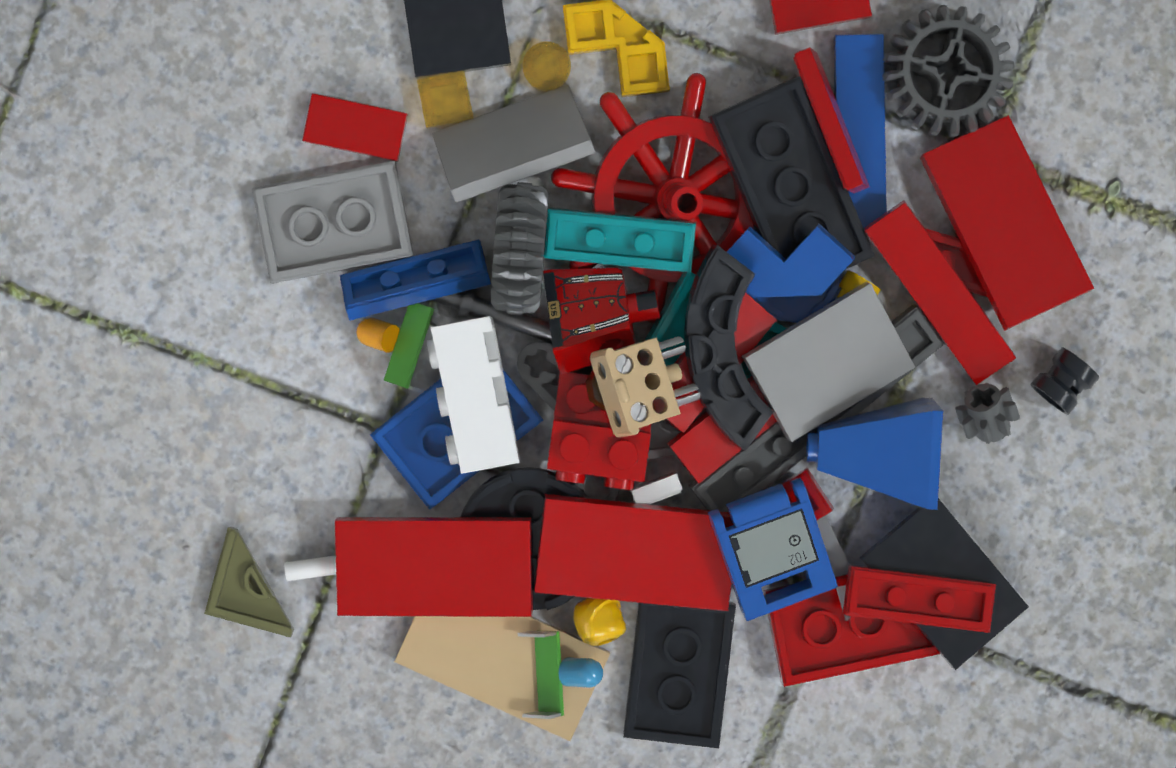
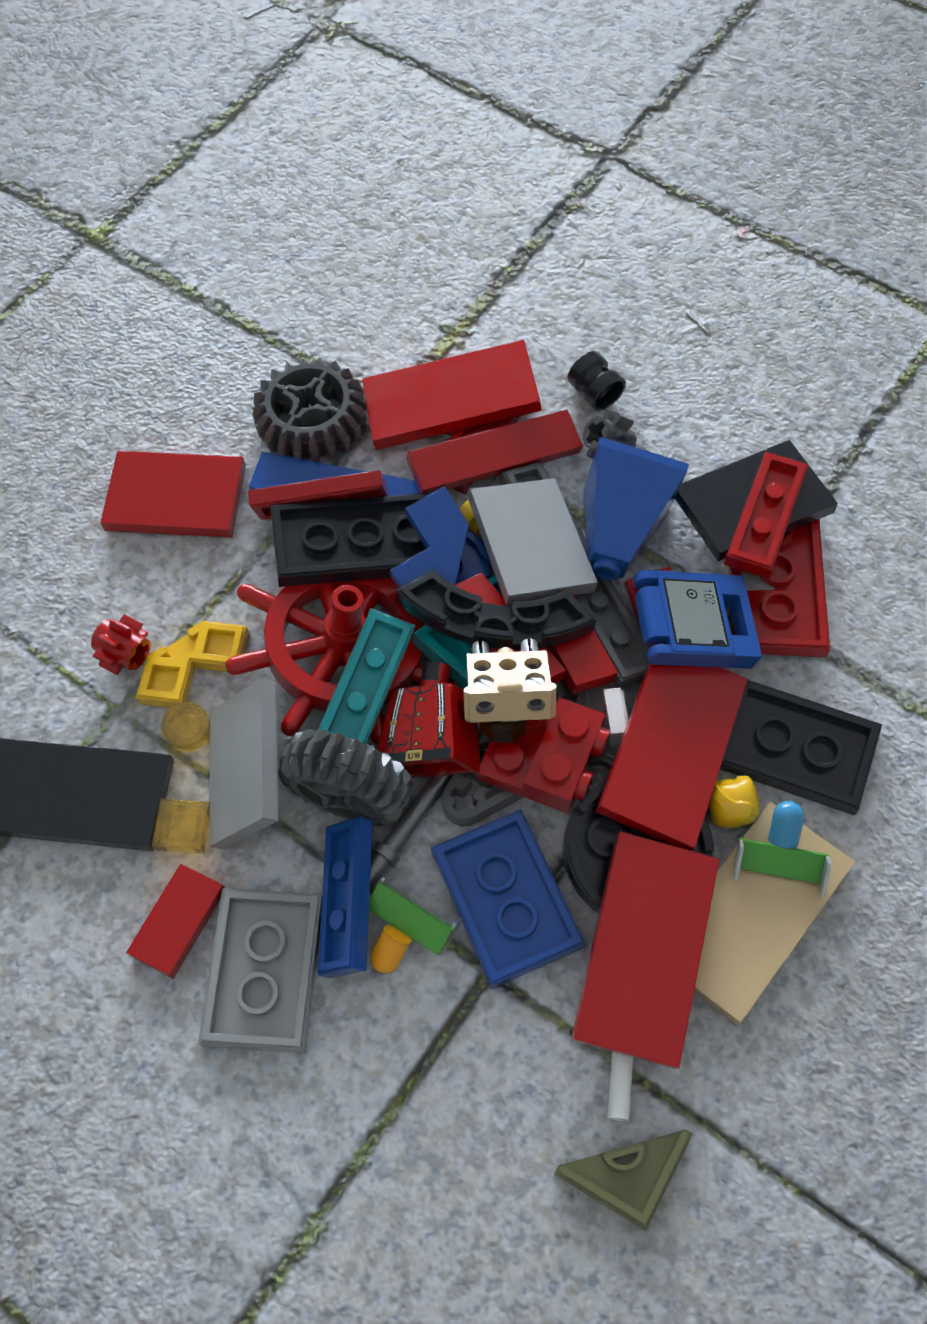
camera: 75 degrees left, 25 degrees down
(473, 395) = (474, 856): white wedge -> none

